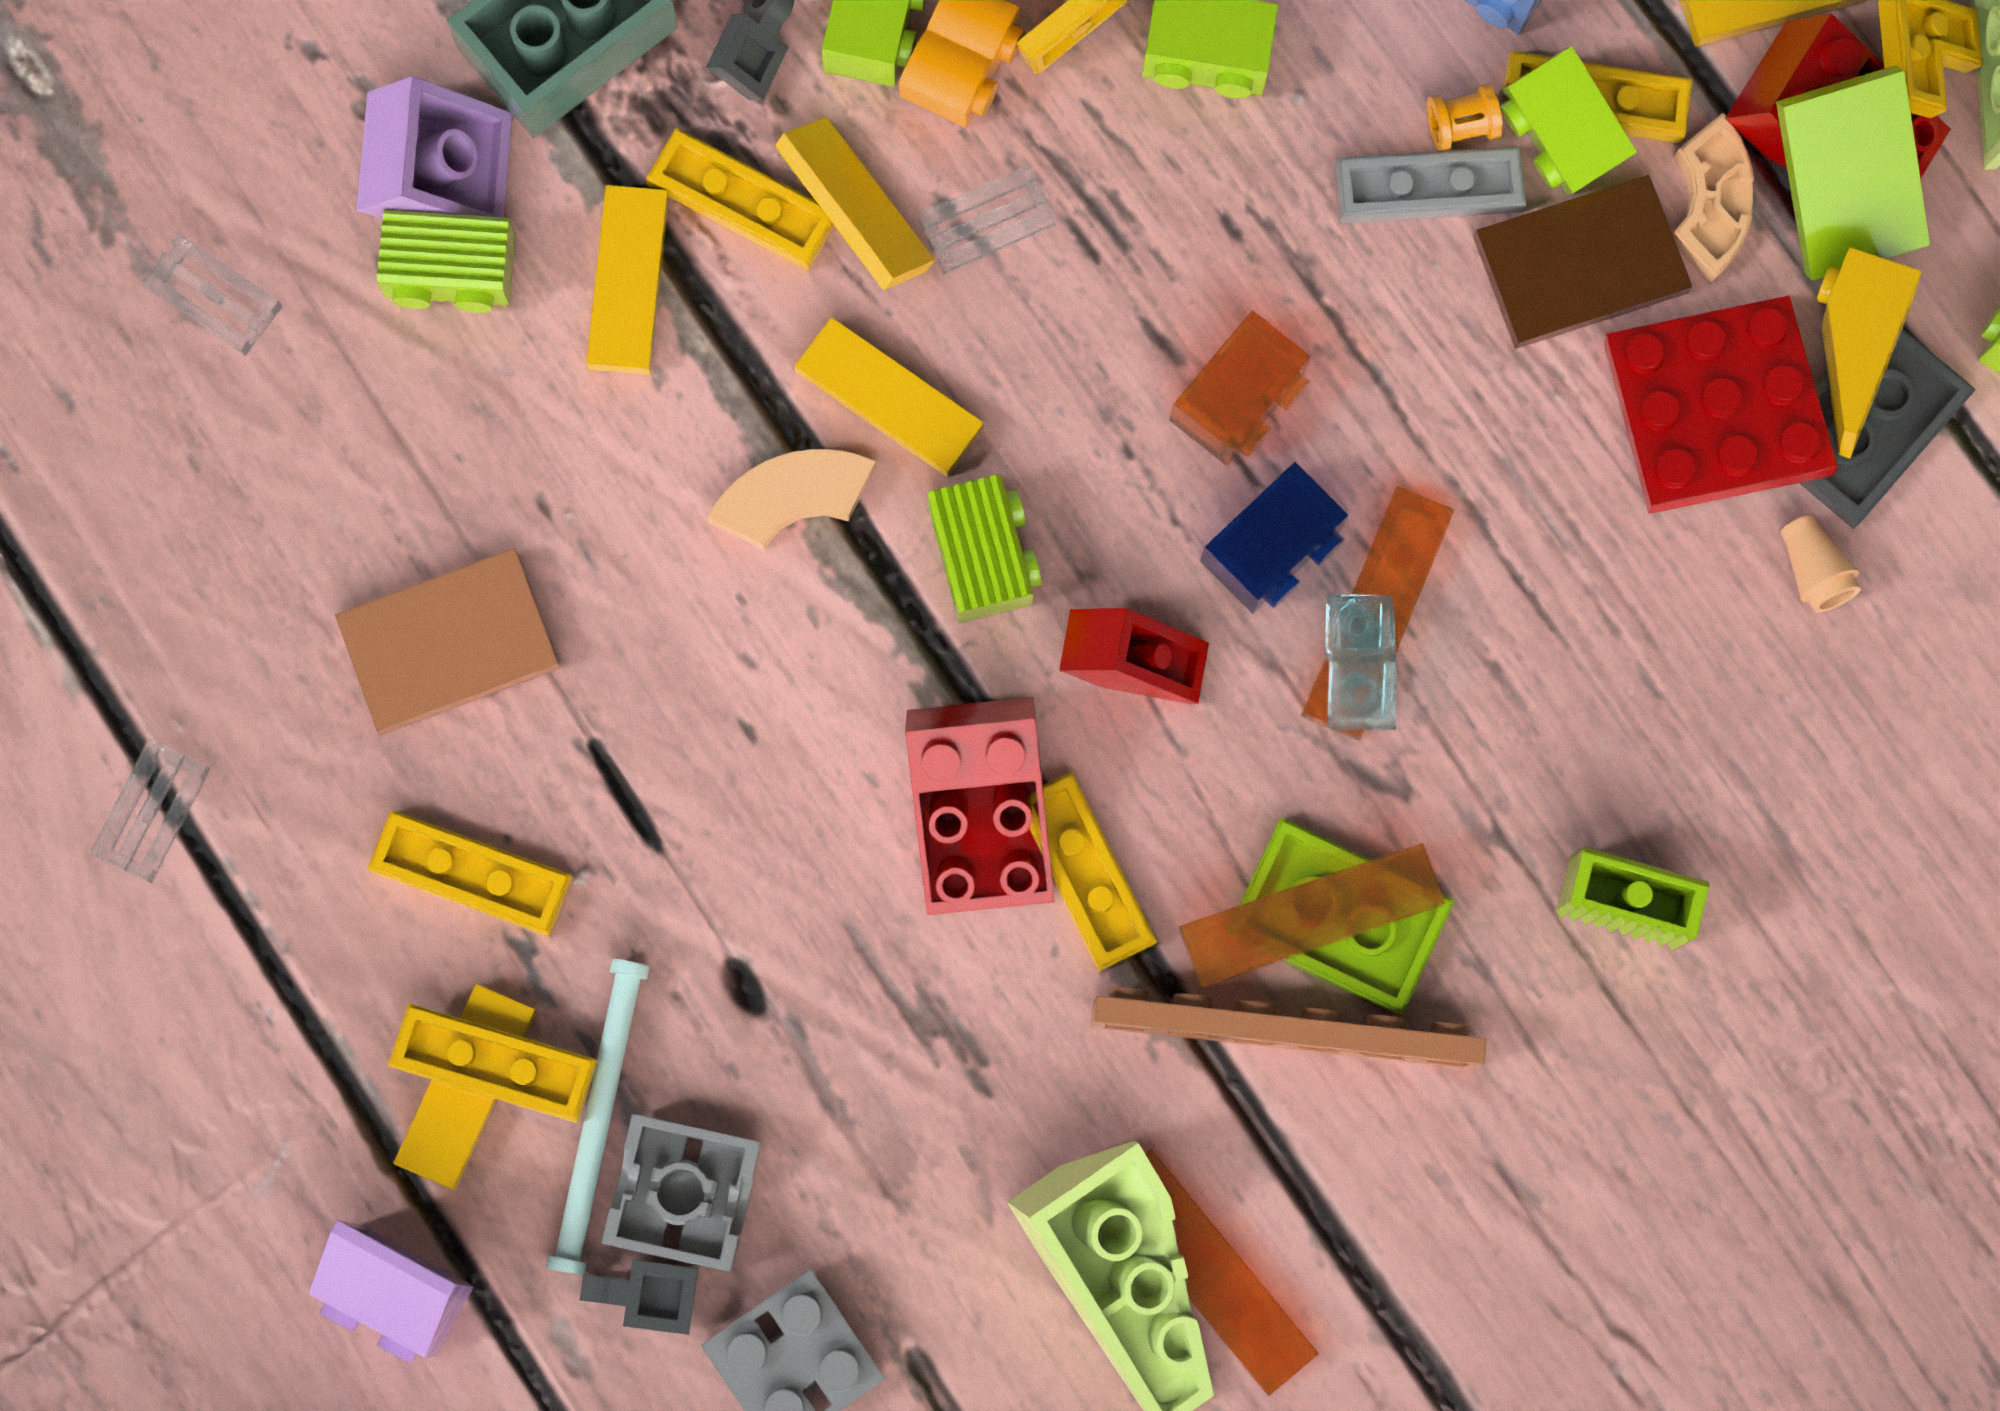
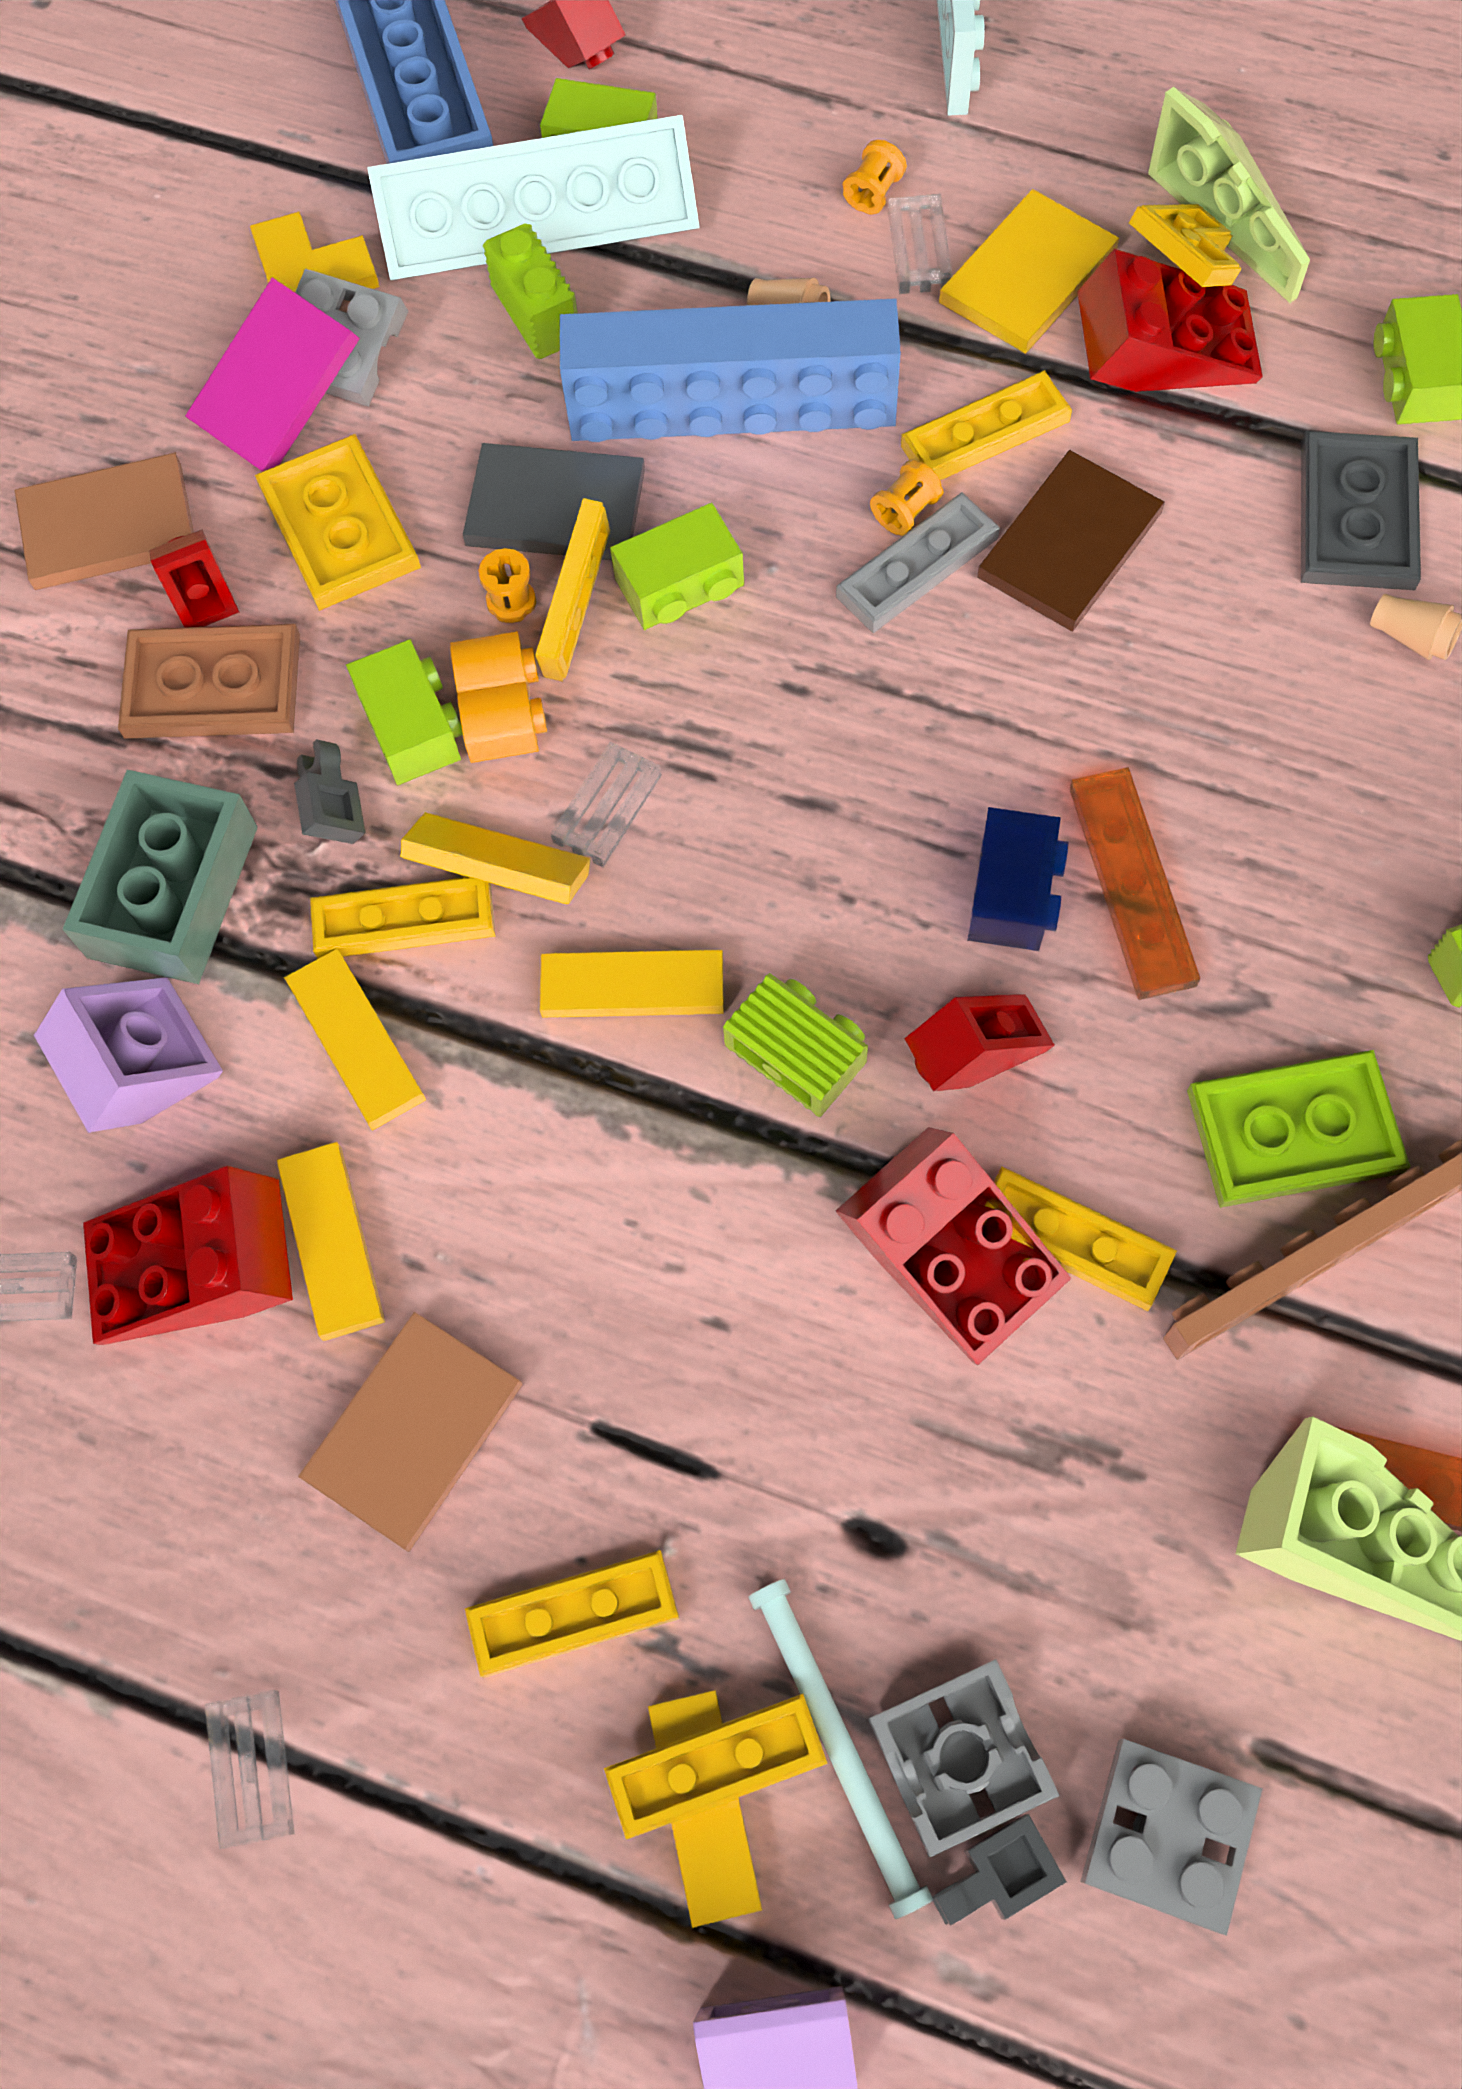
camera: 25 degrees left, 10 degrees down
(367, 373) = (188, 1257): none -> red slope
(446, 259) = (191, 1122): lime brick -> none
(490, 439) = (330, 1241): none -> yellow tile
(792, 489) = (607, 1108): light nougat tile -> none
(1241, 389) = (900, 790): clear orange brick -> none
(1311, 916) = (1280, 1140): clear orange tile -> none
(1362, 662) = (1163, 917): clear light blue slope -> none
(1566, 122) = (986, 446): lime brick -> none
(1719, 197) = (1128, 435): light nougat tile -> none
(1719, 404) = (1254, 565): red plate -> none
(1853, 170) = (1216, 344): lime tile -> none
(1860, 330) = (1317, 449): yellow slope -> none

